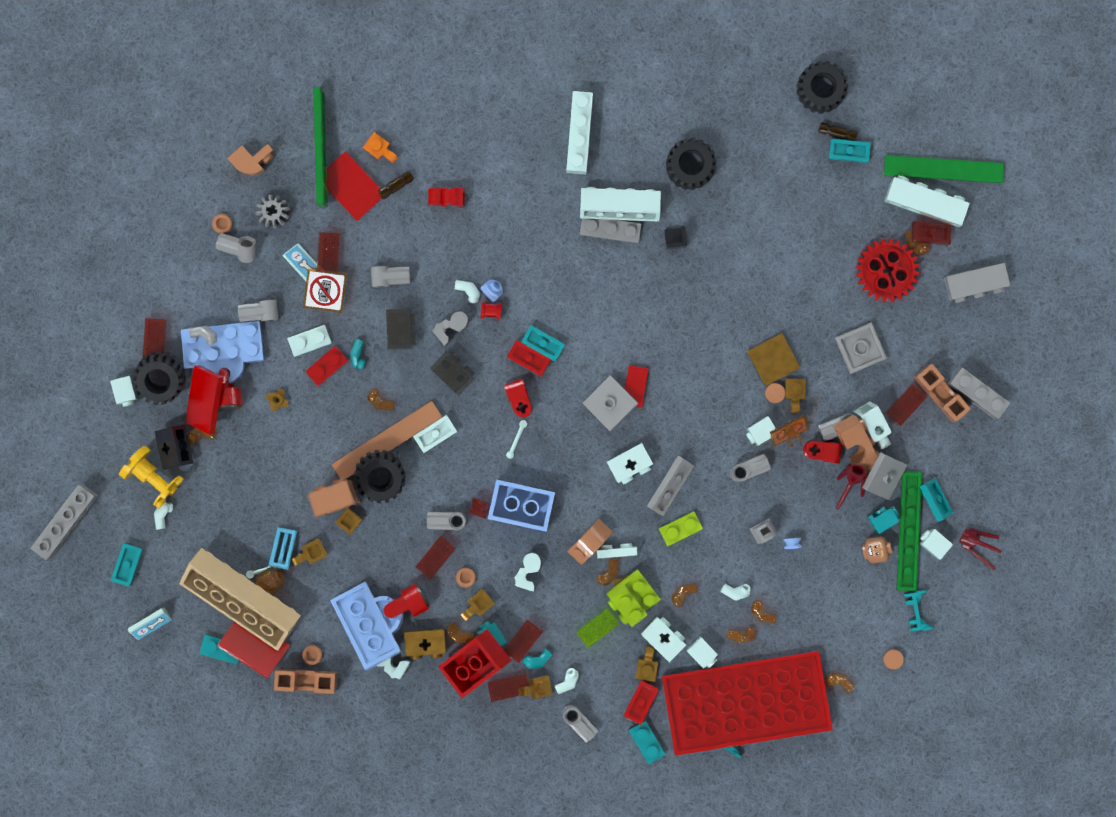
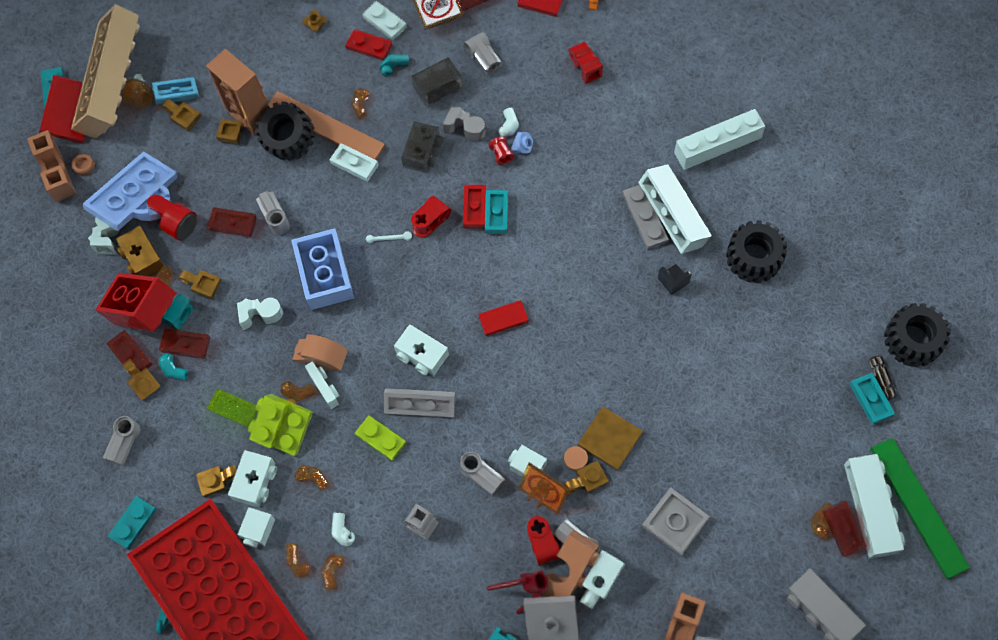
camera: 65 degrees right, 20 degrees down
(150, 623) = (51, 19): slope -> none
(395, 185) = (569, 16): dark brown axle -> none
(465, 577) = (225, 260): nougat tile -> none
(479, 508) = (298, 232): clear red wheel -> none
(569, 683) = (162, 411): light aqua arm -> none
(610, 403) = (472, 302): light grey plate -> none
(641, 702) = (172, 493): red plate -> none
(792, 543) = (424, 561): light blue bush -> none
(870, 278) = (793, 517): red gear -> none
(906, 404) = (644, 604): clear red plate -> none

